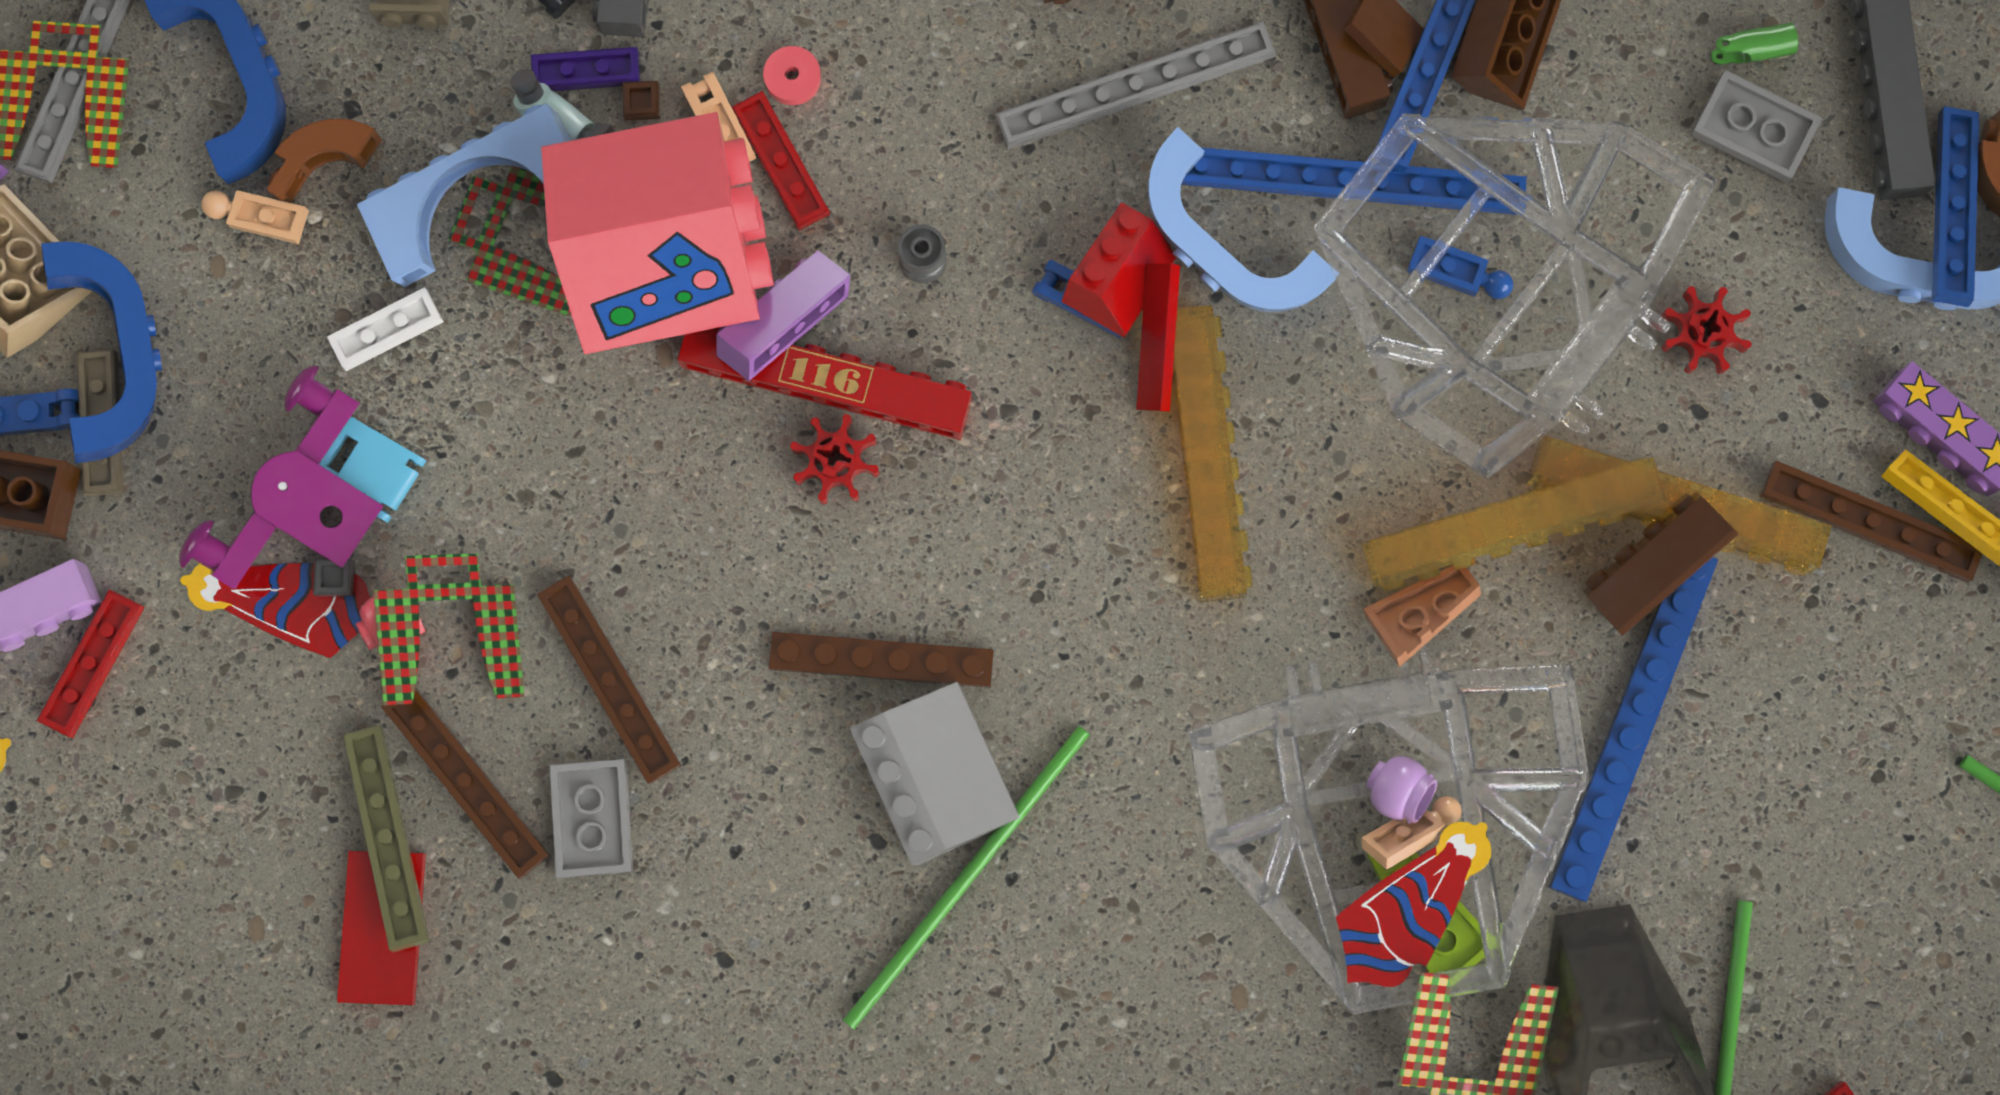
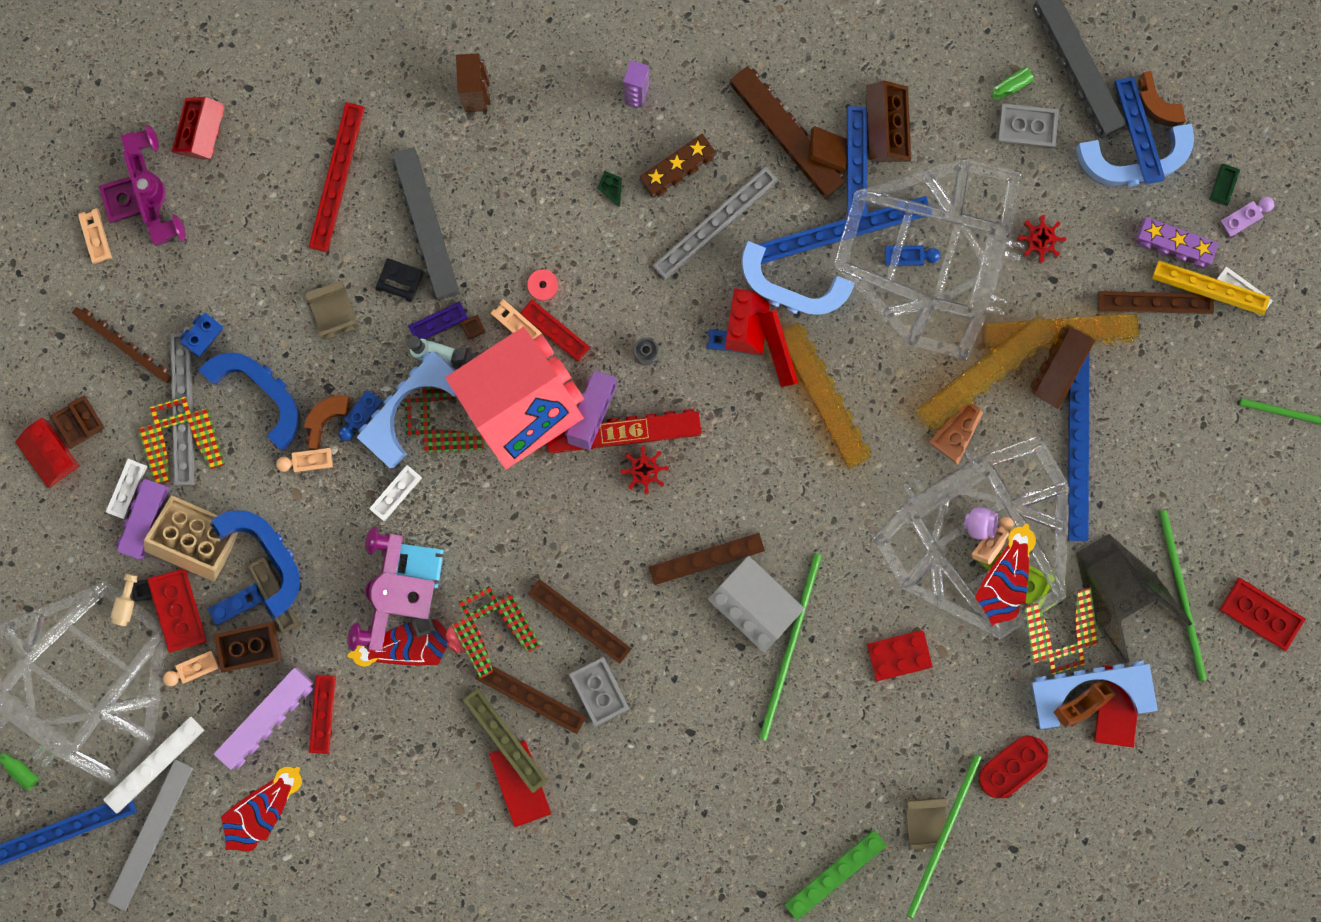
camera: 25 degrees left, 5 degrees up
(380, 171) = (359, 415): none -> blue plate
(1158, 972) = (899, 655): none -> red plate

